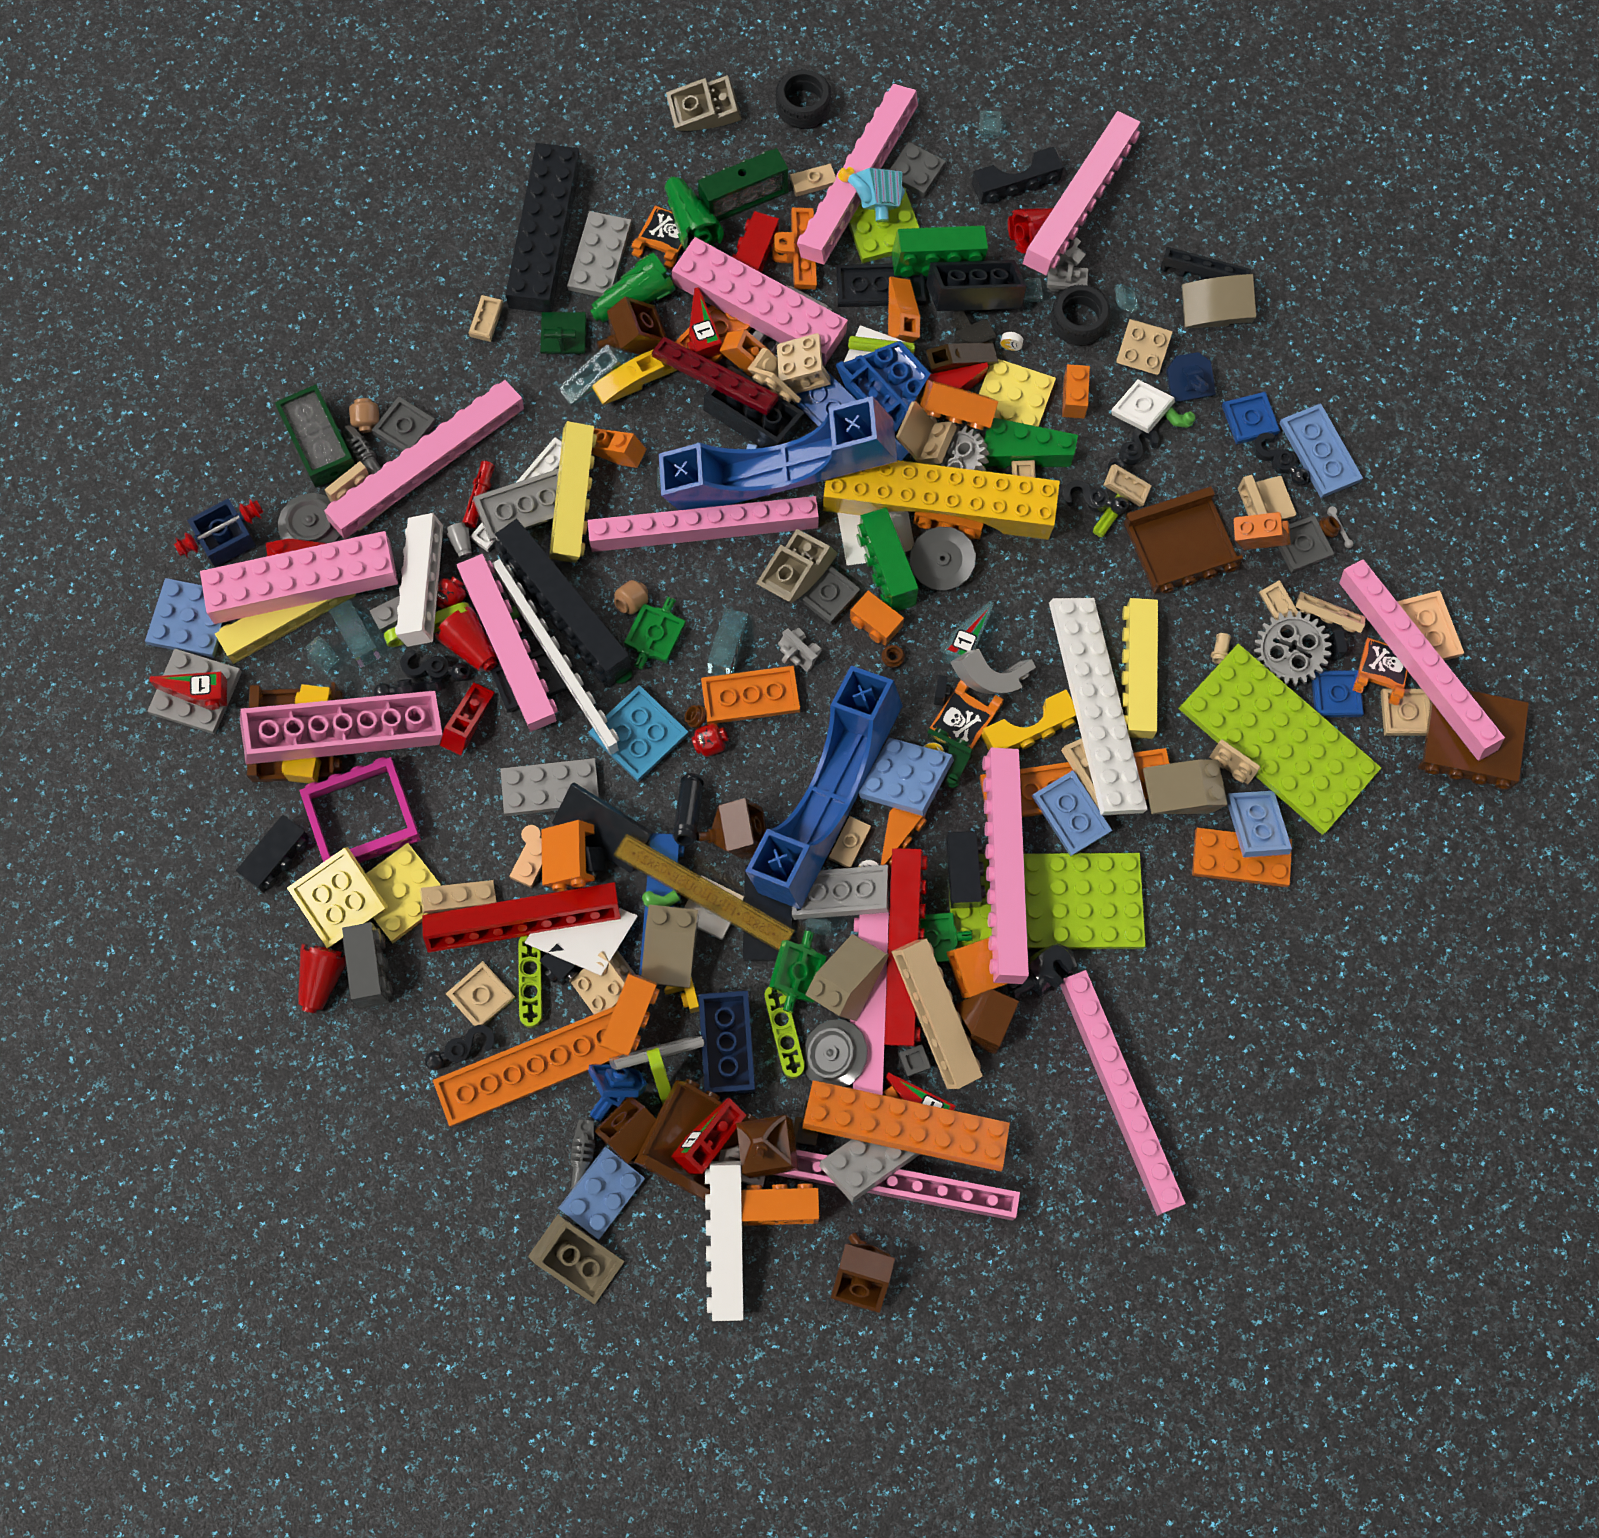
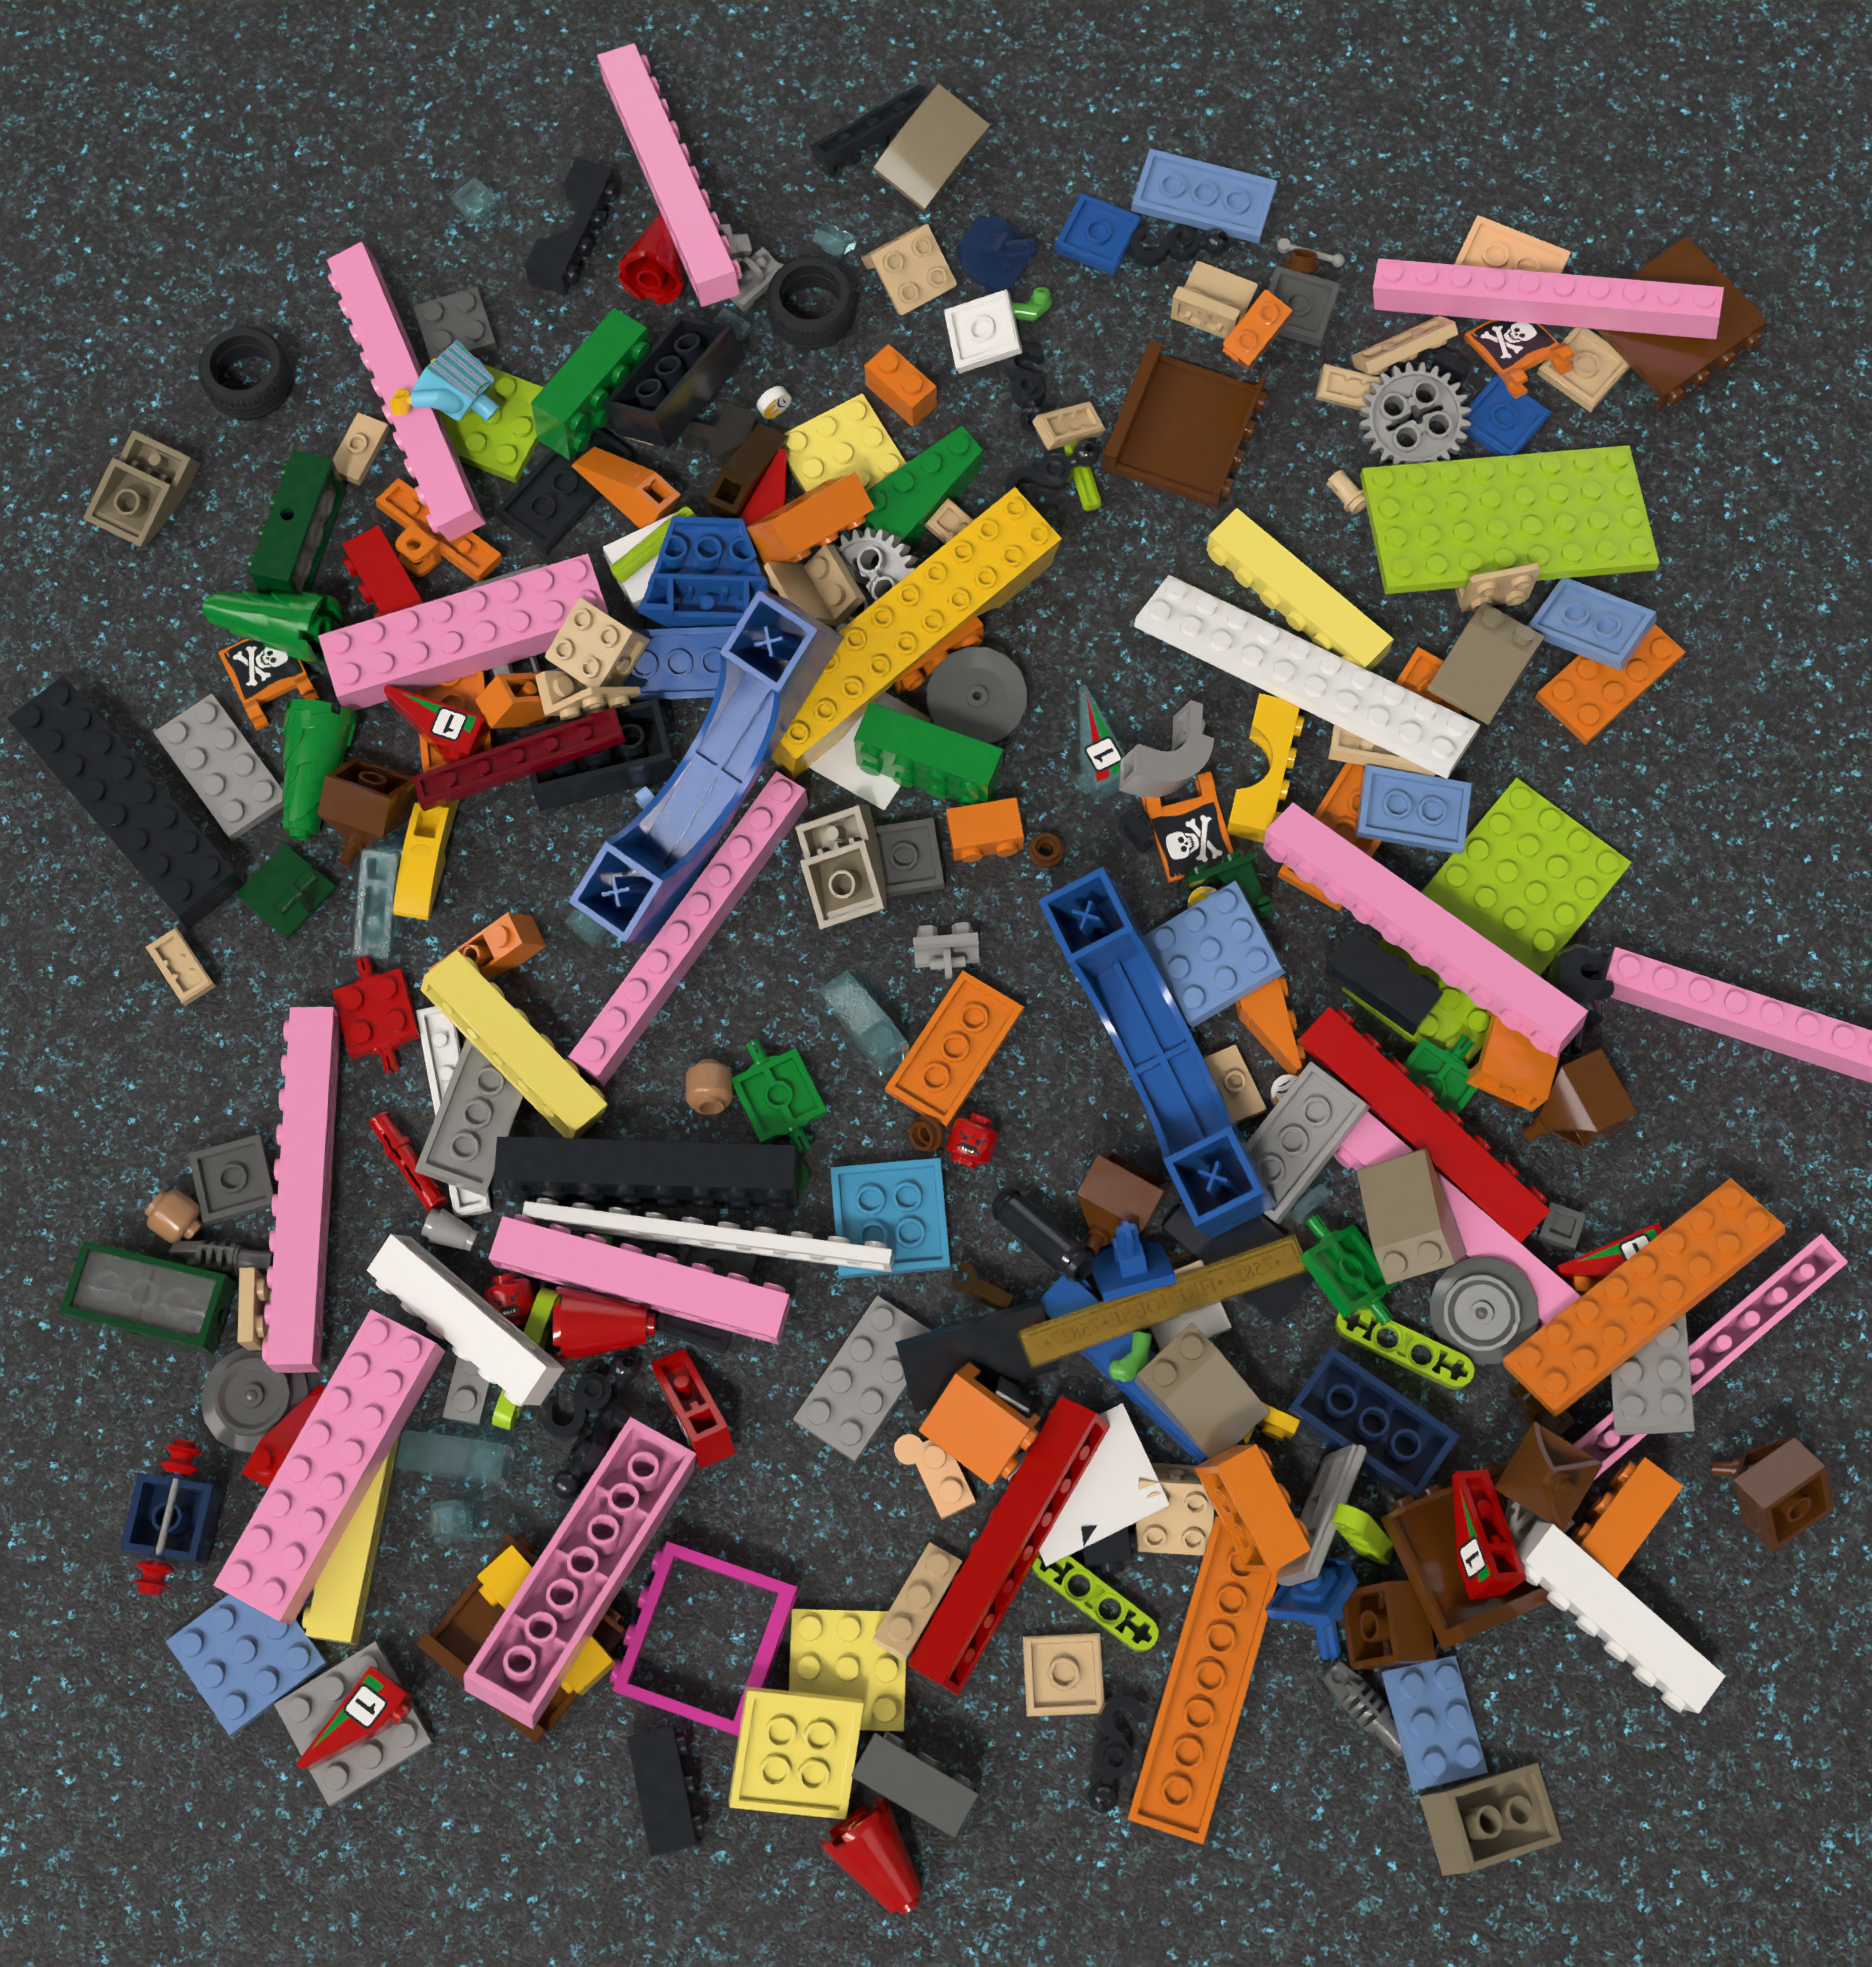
camera: 45 degrees left, 0 degrees up
(538, 421) = (376, 1014): none -> red plate
(641, 811) = (991, 1294): none -> dark brown plate
(708, 863) = (1131, 1265): none -> blue piece
(937, 1013) = (1536, 1152): tan brick -> none

